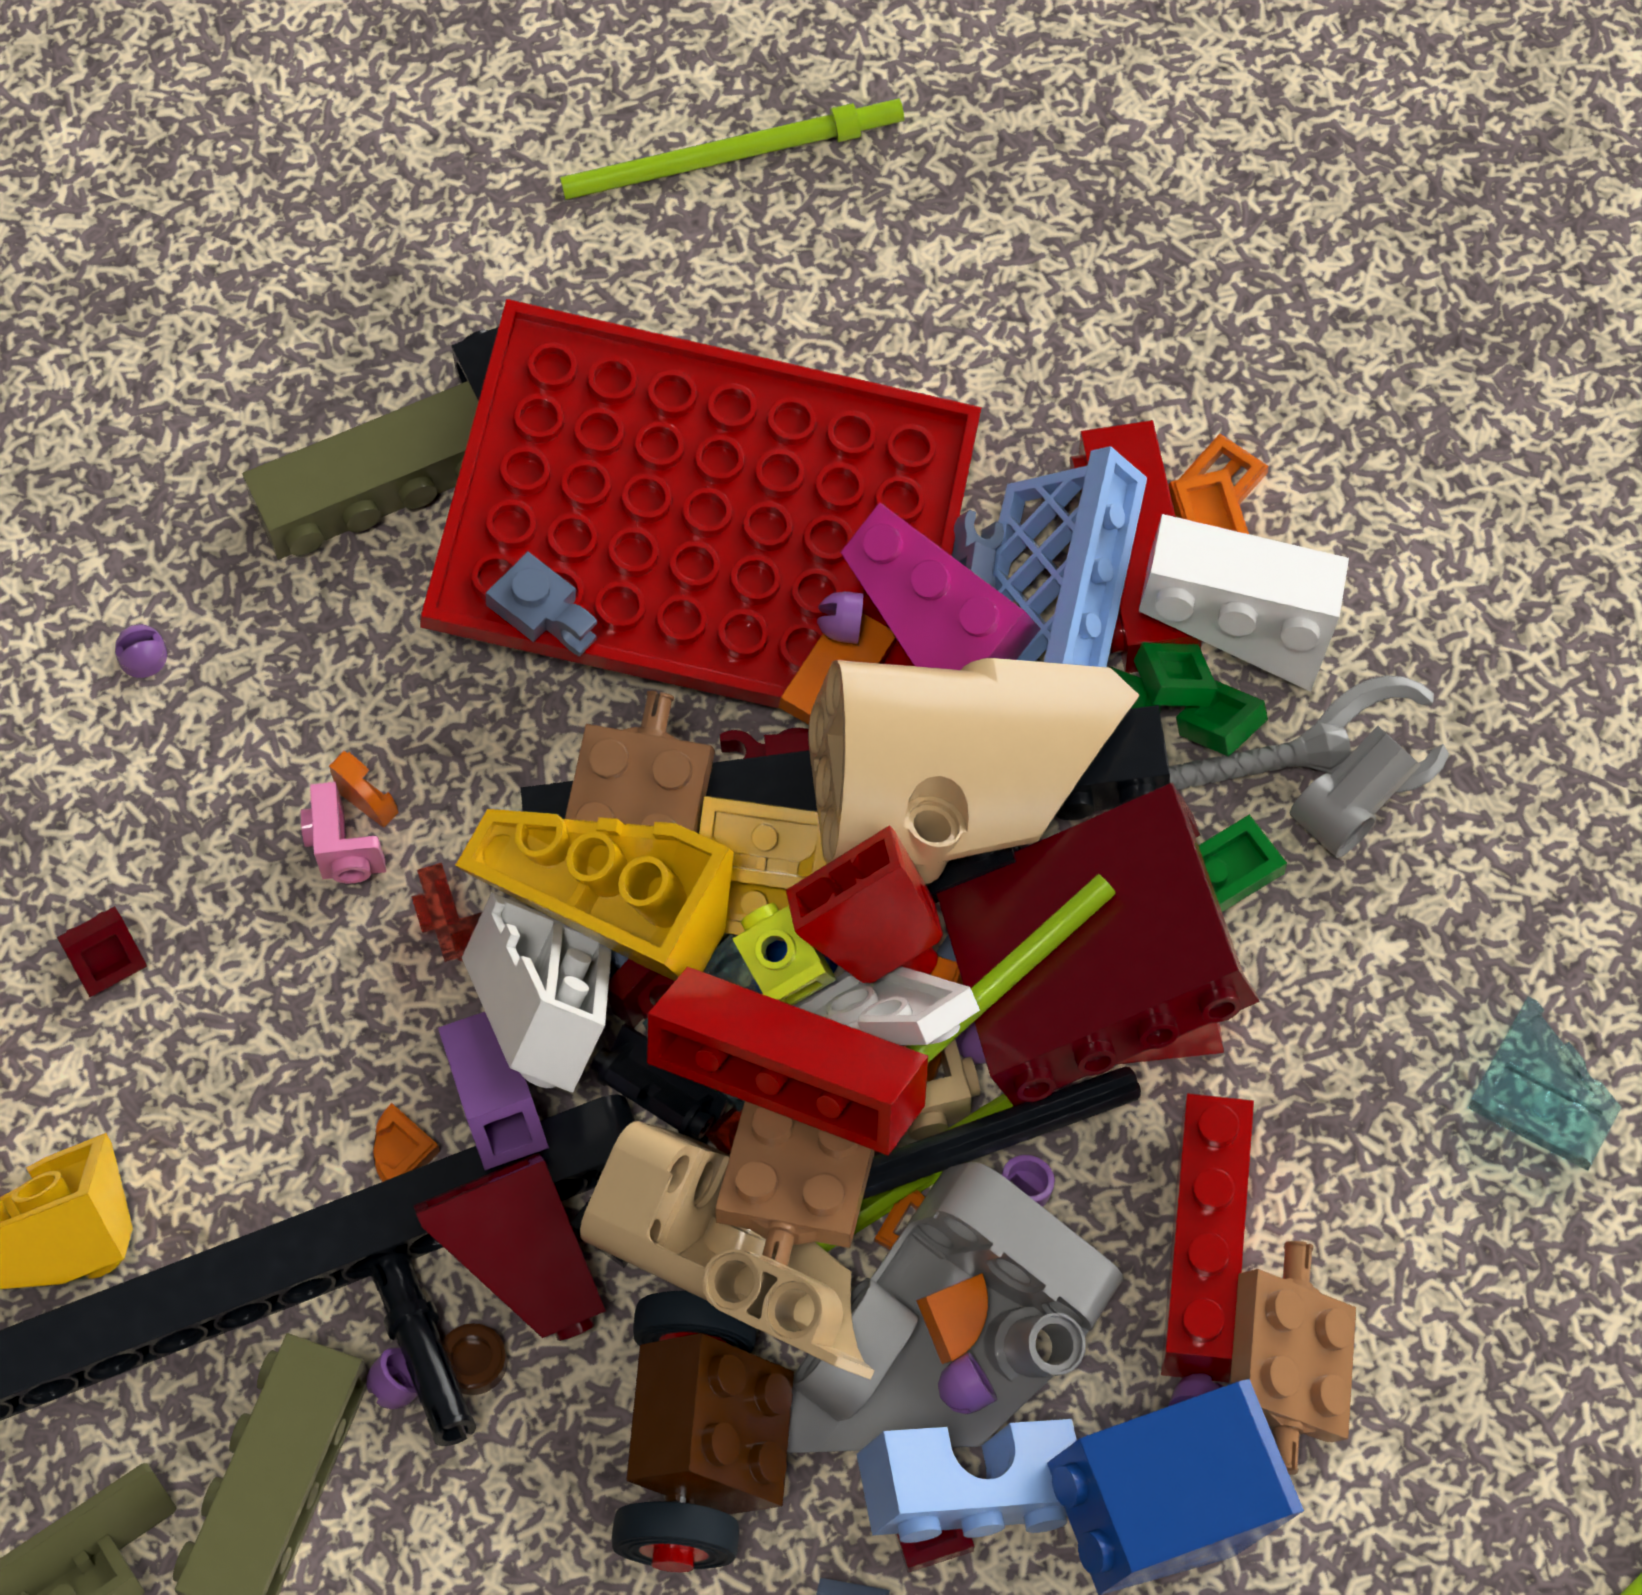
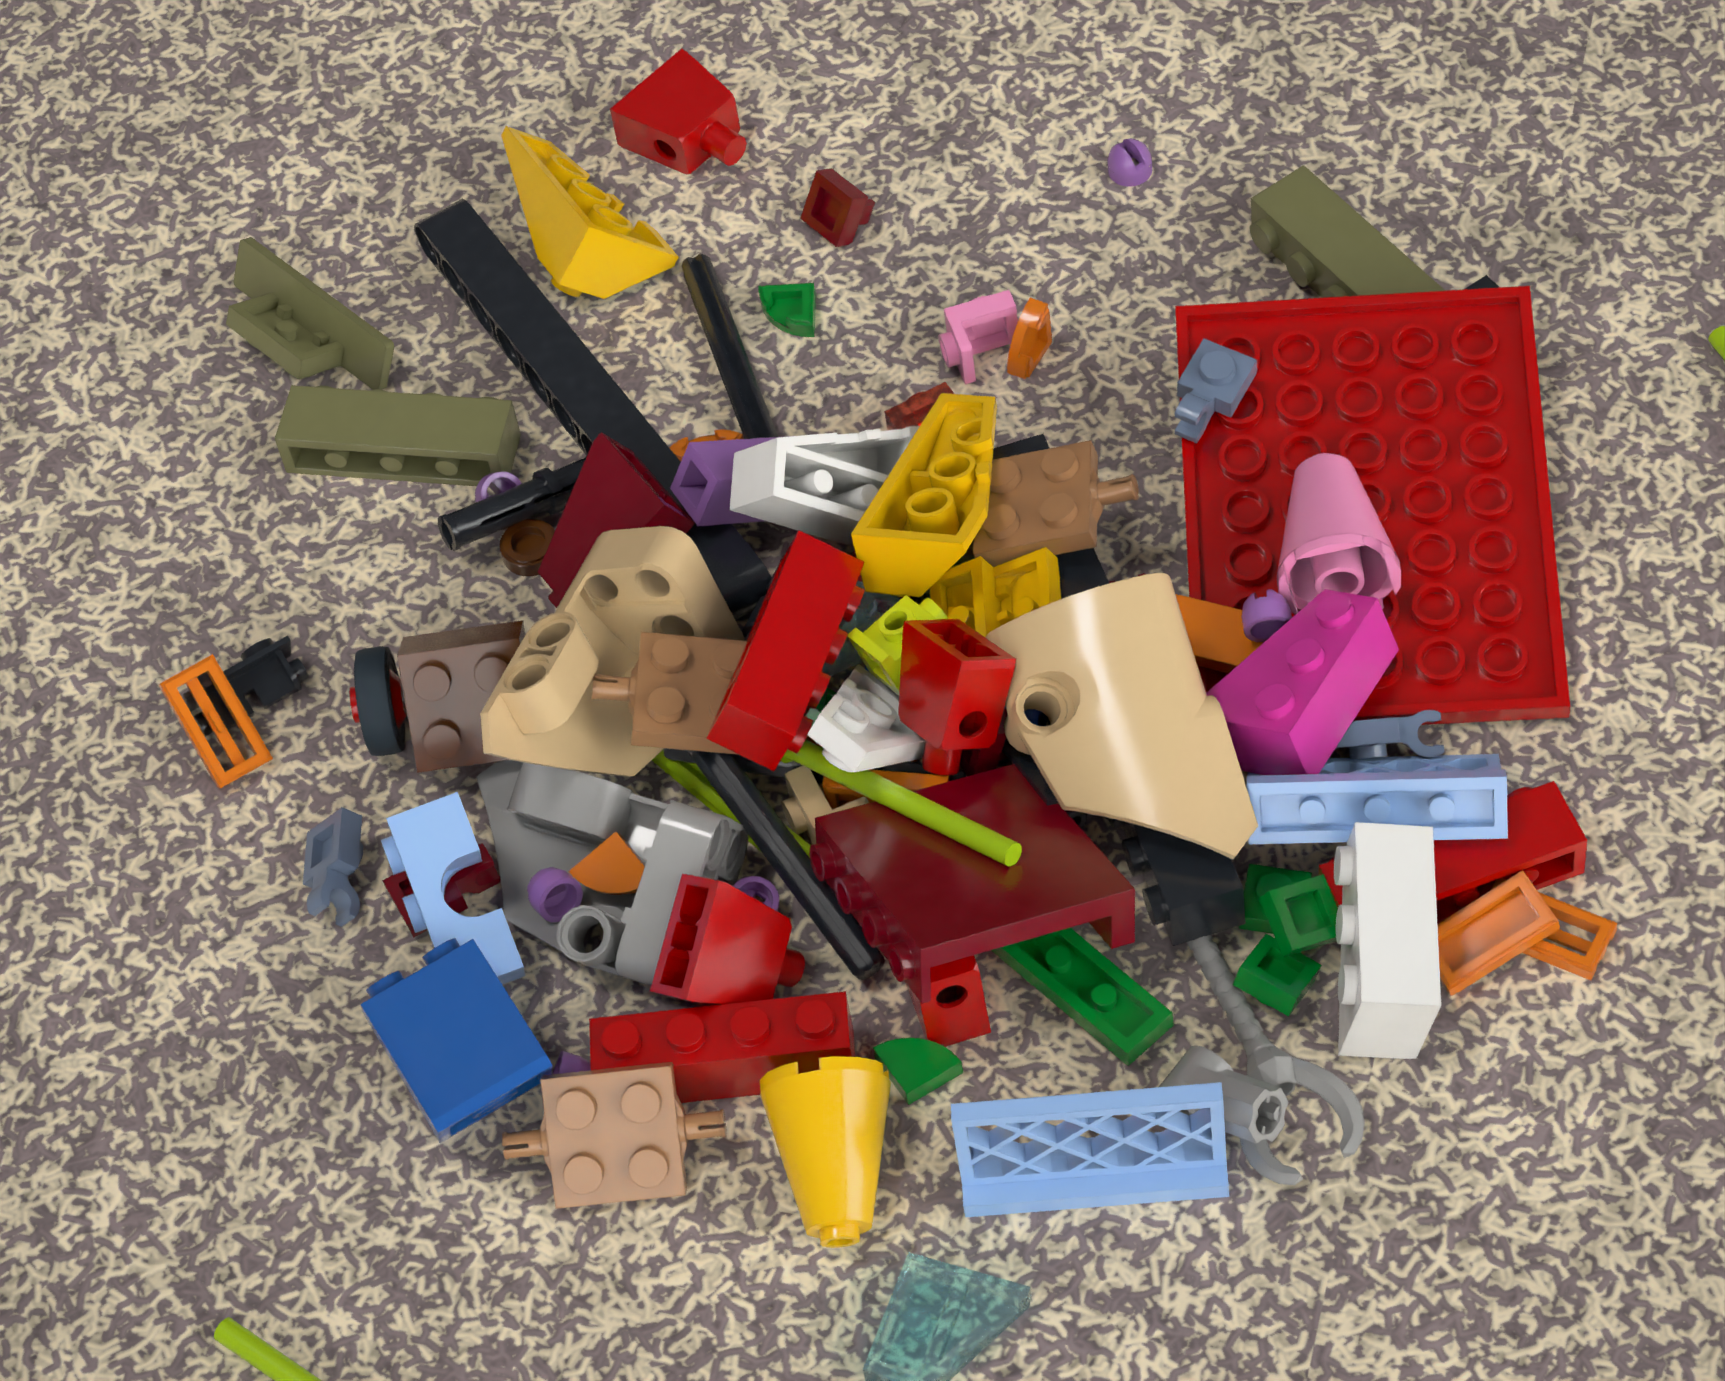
camera: 85 degrees right, 10 degrees down
(218, 1027) = (790, 306): none -> green tile
(278, 1100) = (727, 348): none -> black axle
(768, 534) = (1333, 537): none -> bright pink cone
(1101, 1200) = (724, 946): none -> red torso
(1247, 1063) = (917, 1065): none -> green tile
(1342, 1146) = (830, 1141): none -> yellow cone
(1399, 915) = (1077, 1172): none -> light blue fence

